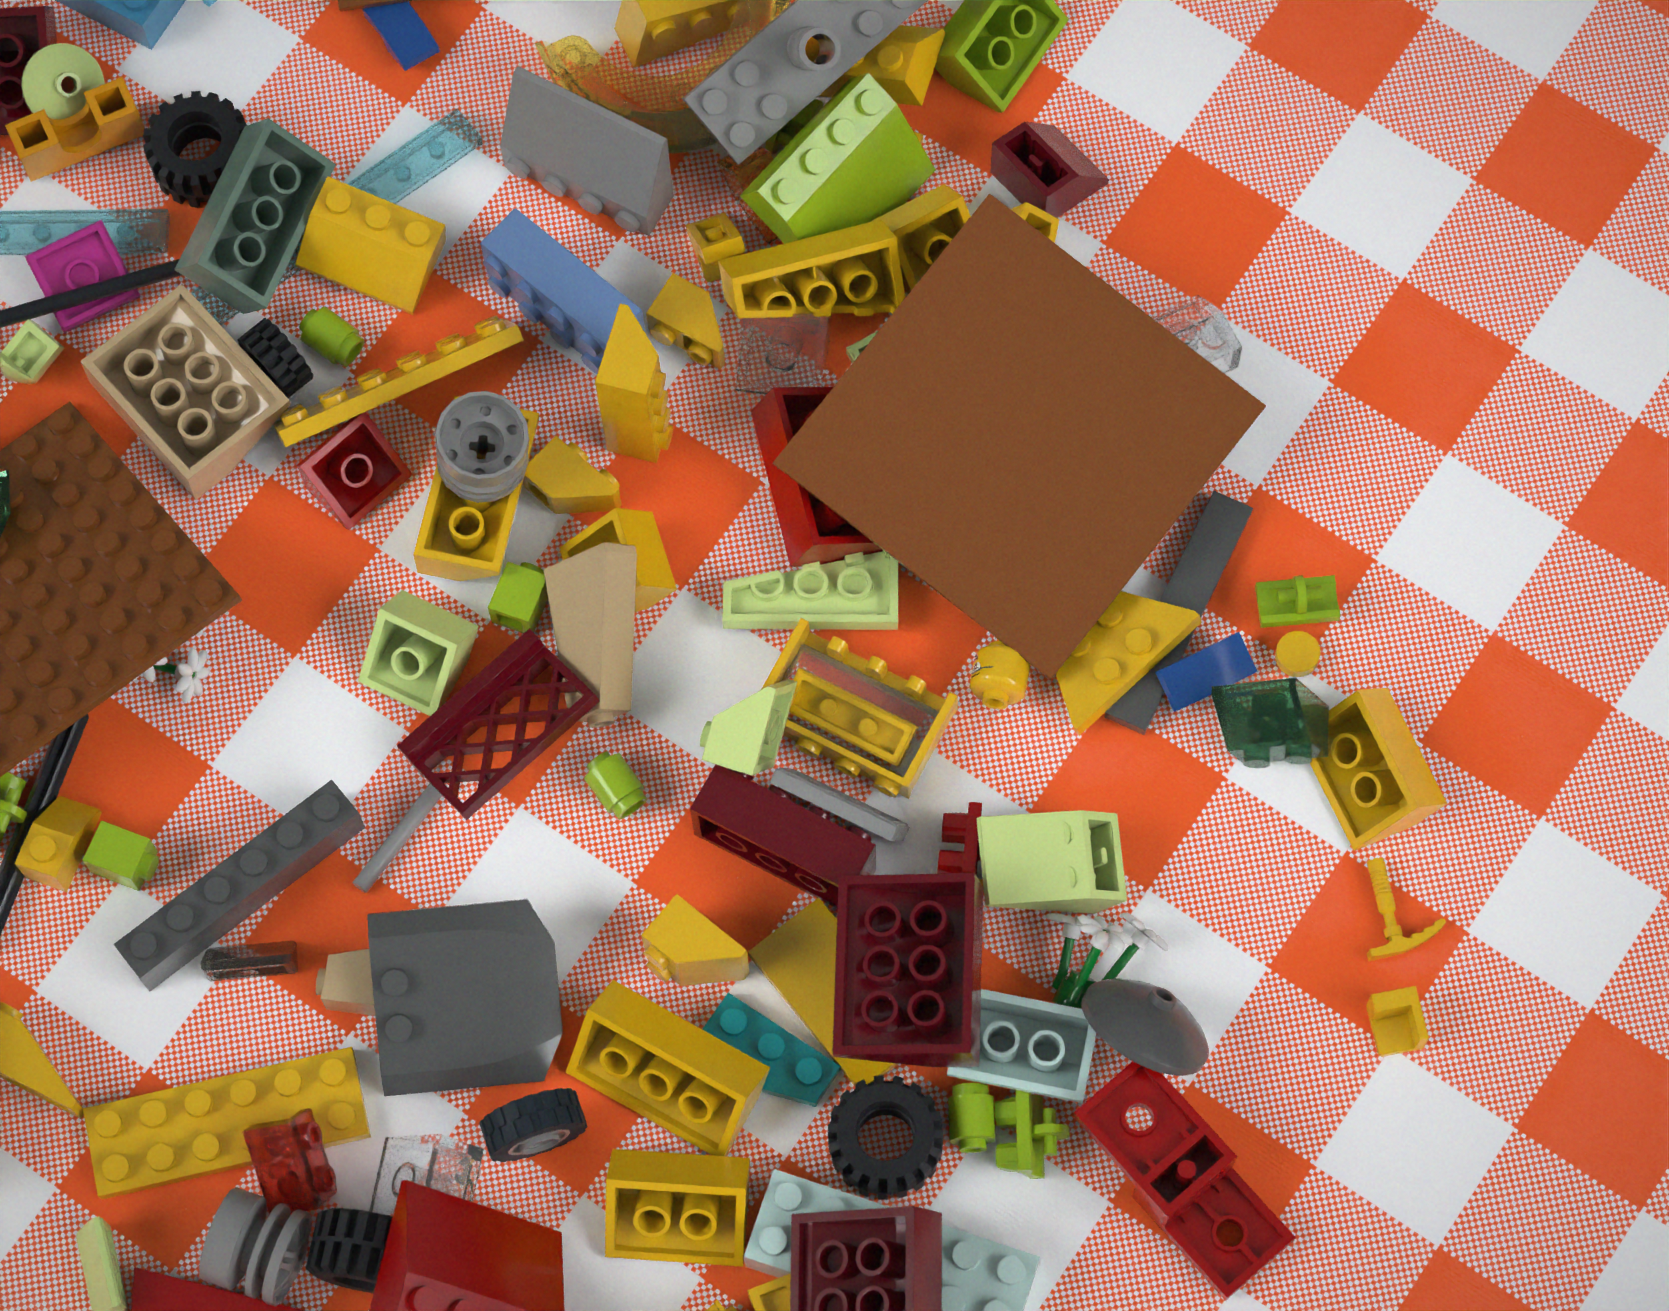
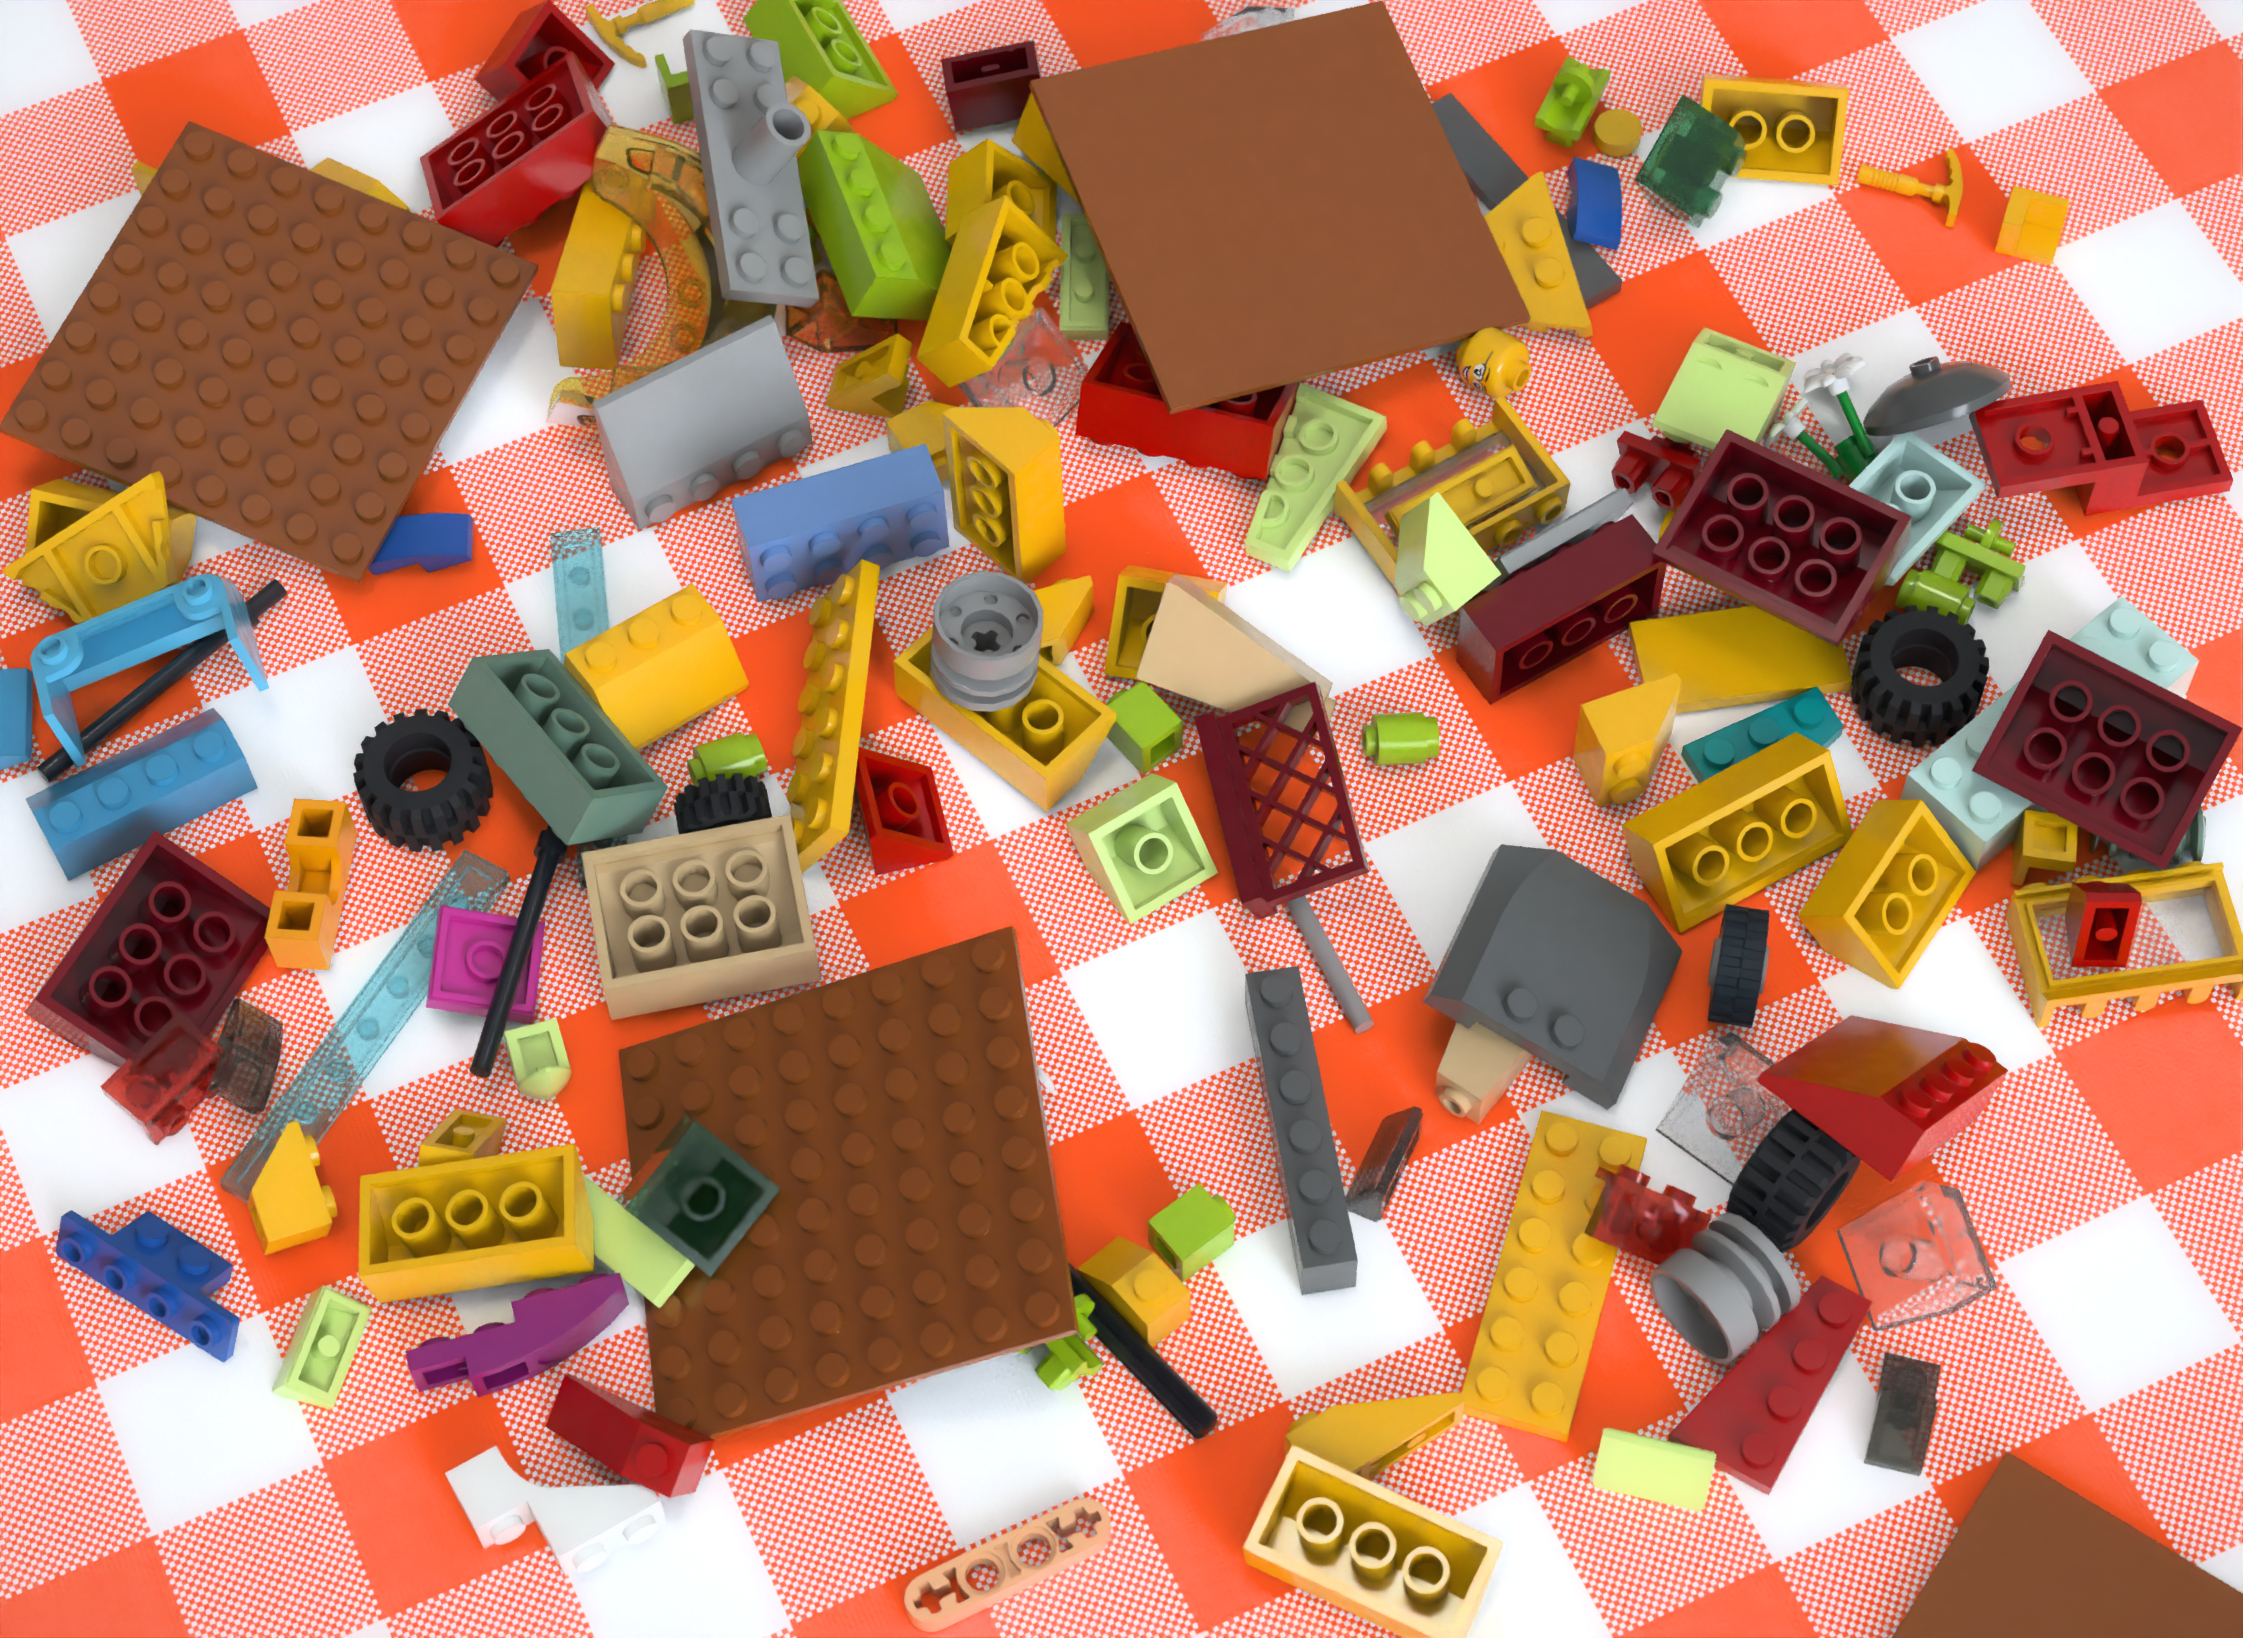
camera: 60 degrees left, 10 degrees down
(45, 73) = (241, 874): yellowish green dish -> none

